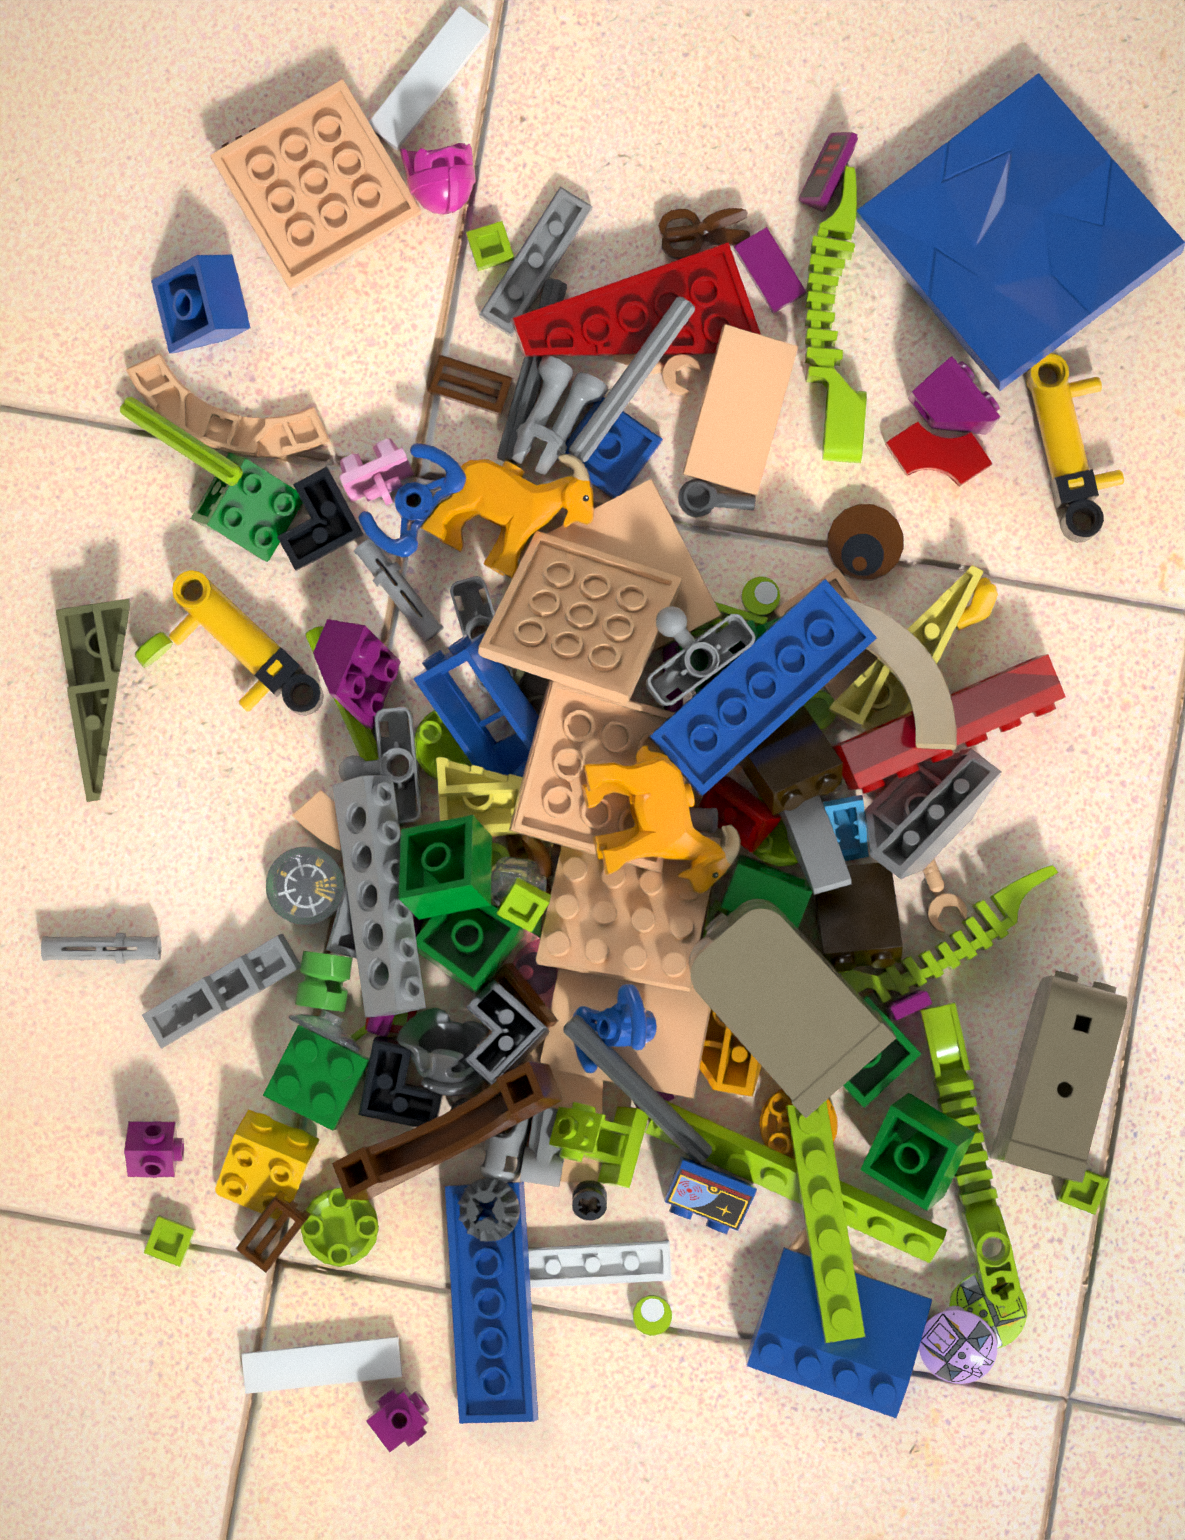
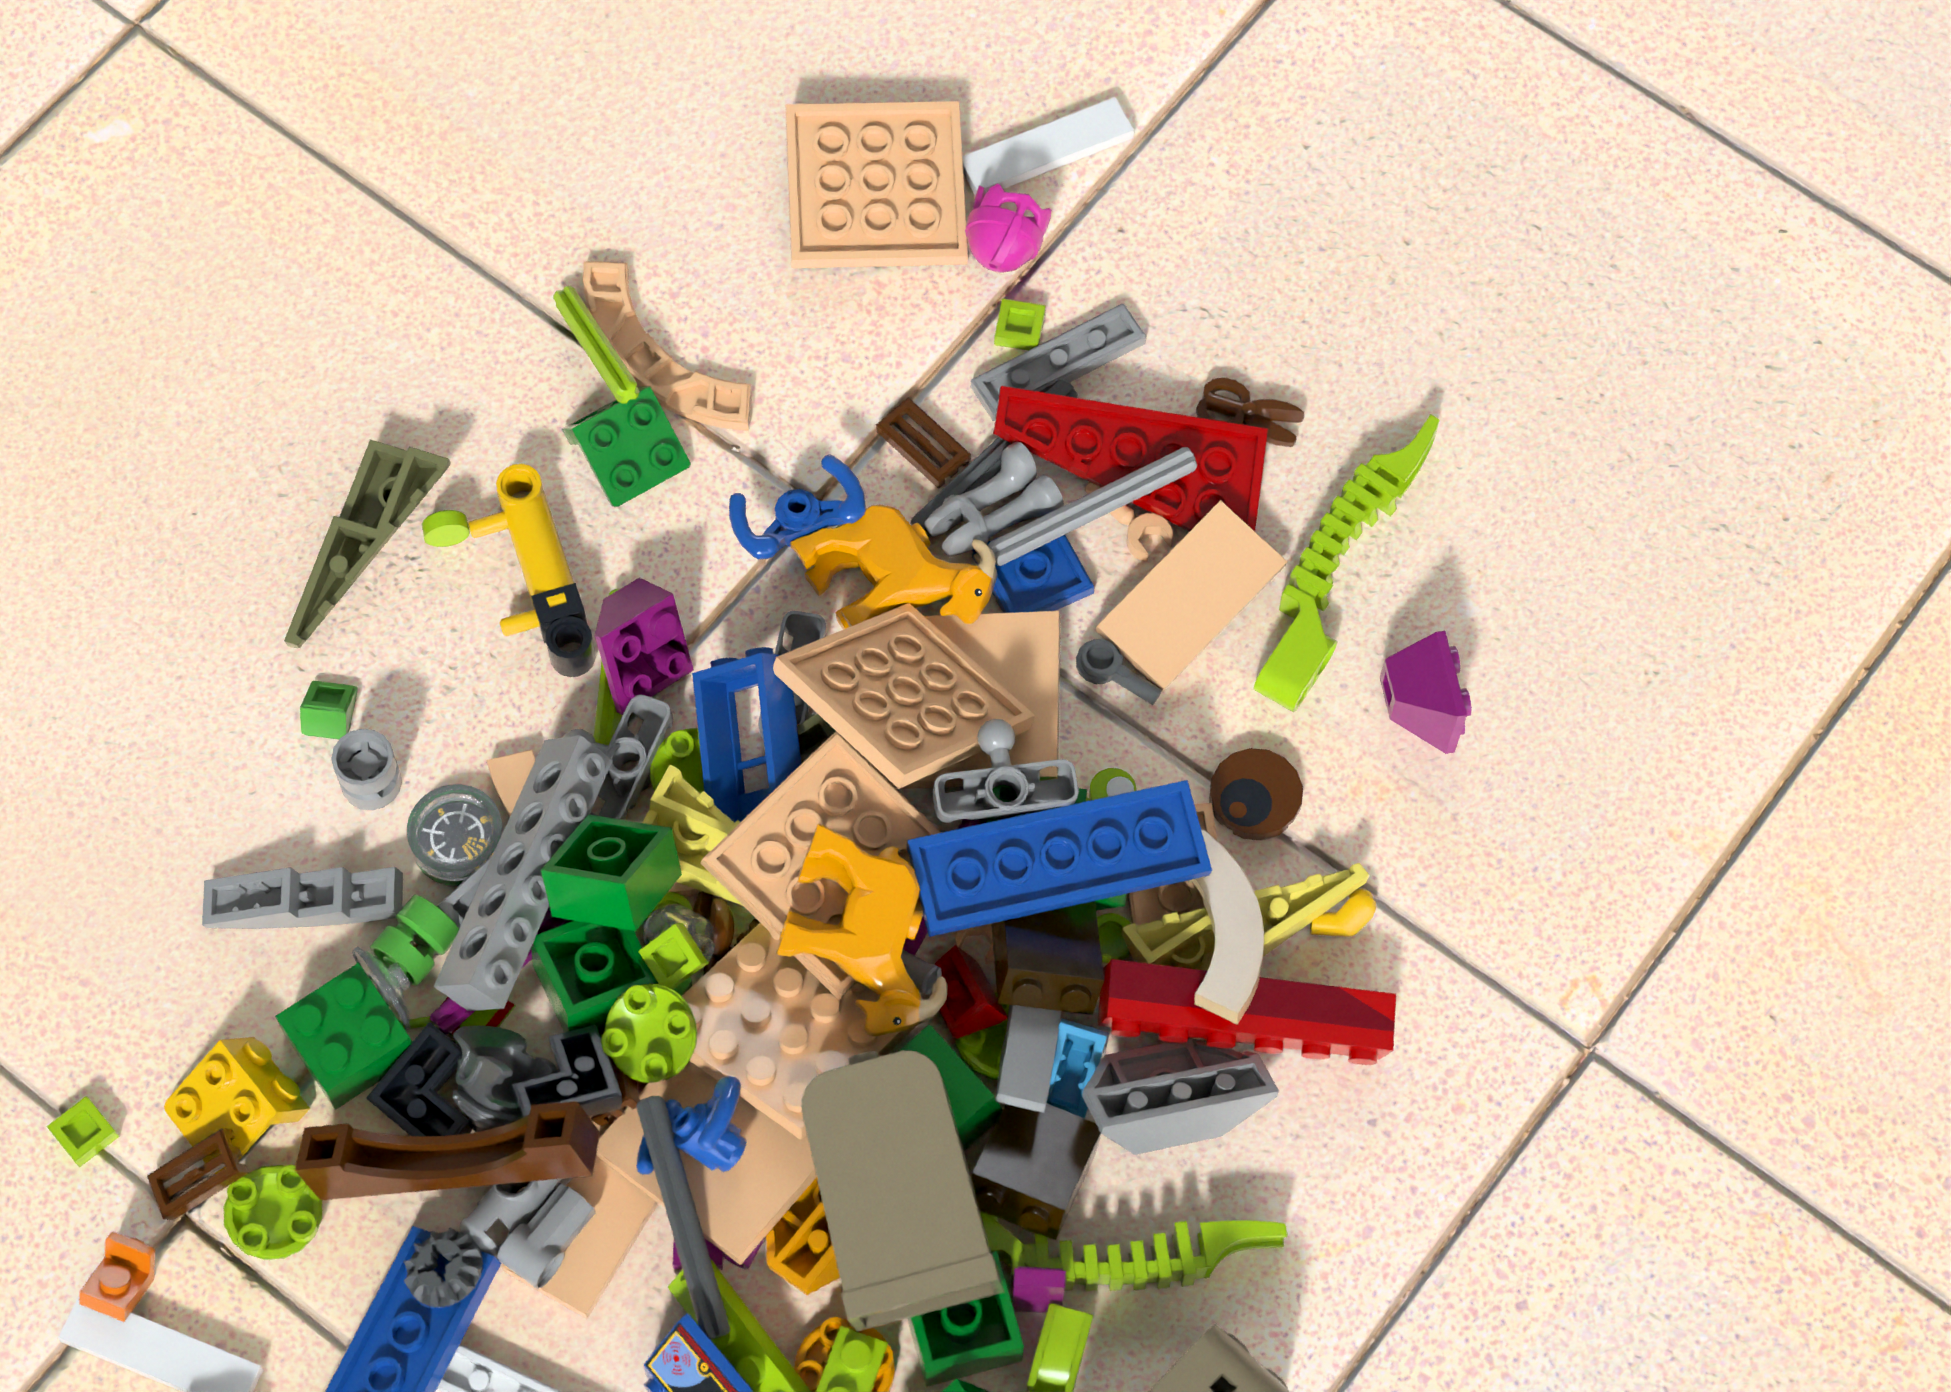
camera: 25 degrees right, 20 degrees down
(147, 948) = (222, 800): light grey pin -> none
(150, 835) = (327, 709): none -> bright green slope
(152, 1149) = (125, 1018): magenta brick -> none
(200, 302) = (696, 235): blue slope -> none
(211, 872) = (366, 769): none -> light grey wheel
(263, 1331) = (119, 1277): none -> orange bracket
(330, 524) = (695, 501): black brick -> none
(369, 554) = (725, 549): light grey pin -> none
(377, 476) = (774, 474): bright pink hips -> none
(540, 970) = (650, 1033): none -> lime dish
(592, 1210) = (562, 1342): black bush -> none
(615, 1144) = (626, 1274): lime tile -> none
(769, 270) = (1298, 482): magenta tile -> none
(828, 170) = (1405, 424): slope -> none
(941, 899) = (1140, 1207): light nougat piece -> none
(956, 457) = (1401, 758): red tile -> none
(1019, 231) = (1585, 564): blue tile -> none
(1072, 481) = (1524, 803): yellow piece -> none

